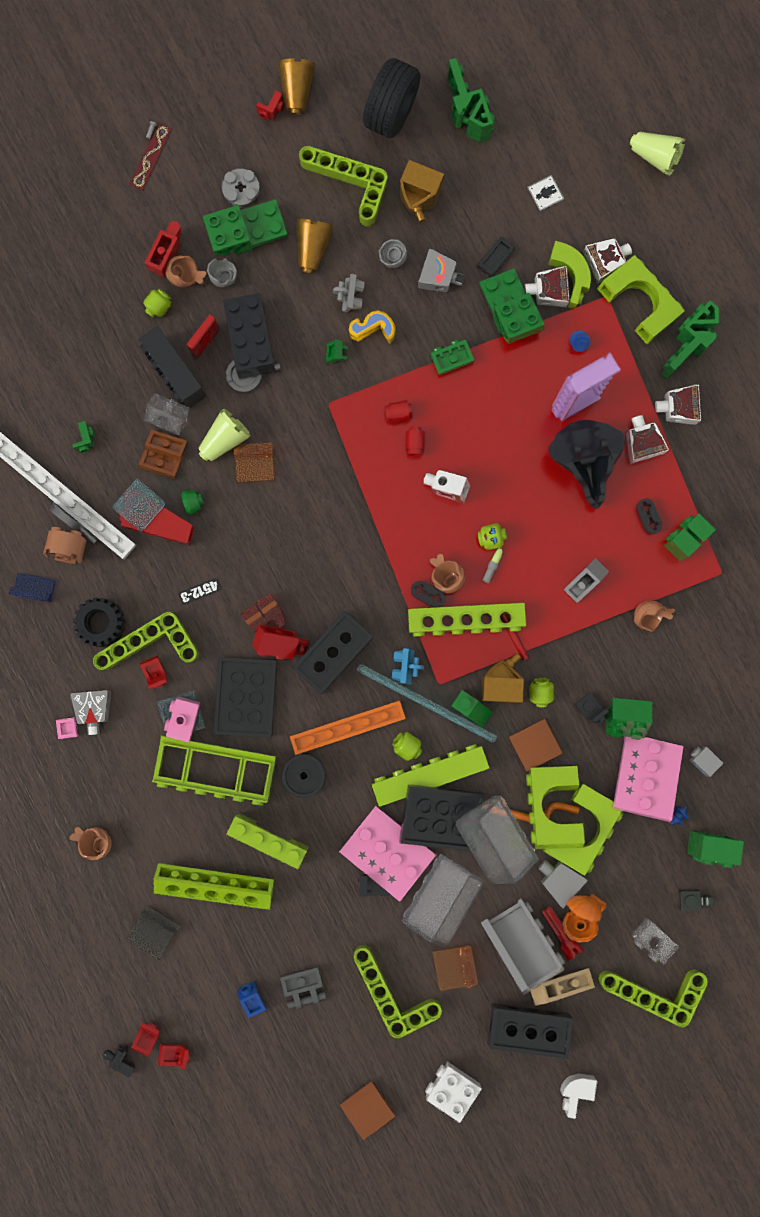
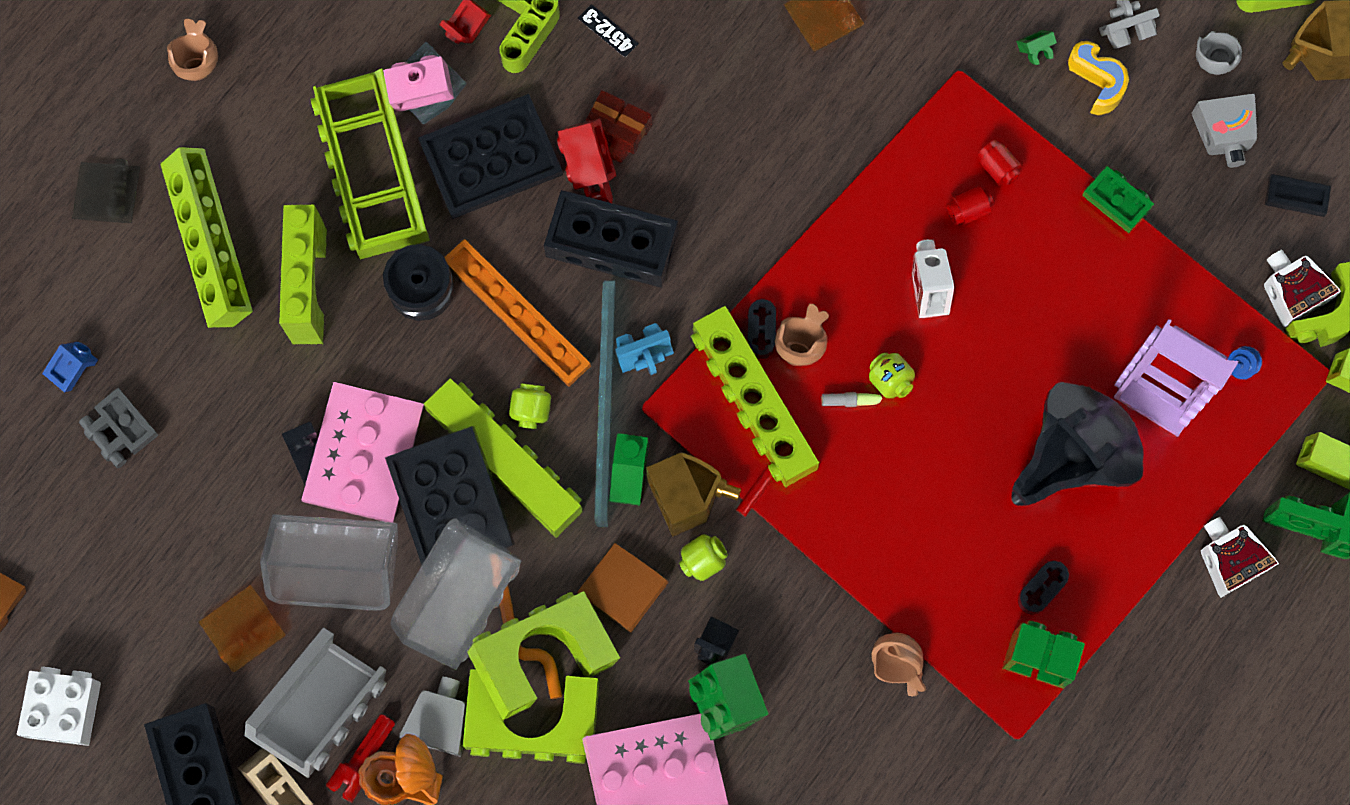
camera: 65 degrees right, 10 degrees down
(388, 999) = (157, 552): lime beam -> none
(511, 306) = (1238, 244): green piece -> none
(586, 580) = (900, 539): light grey slope -> none
(644, 441) = (1150, 525): torso -> none

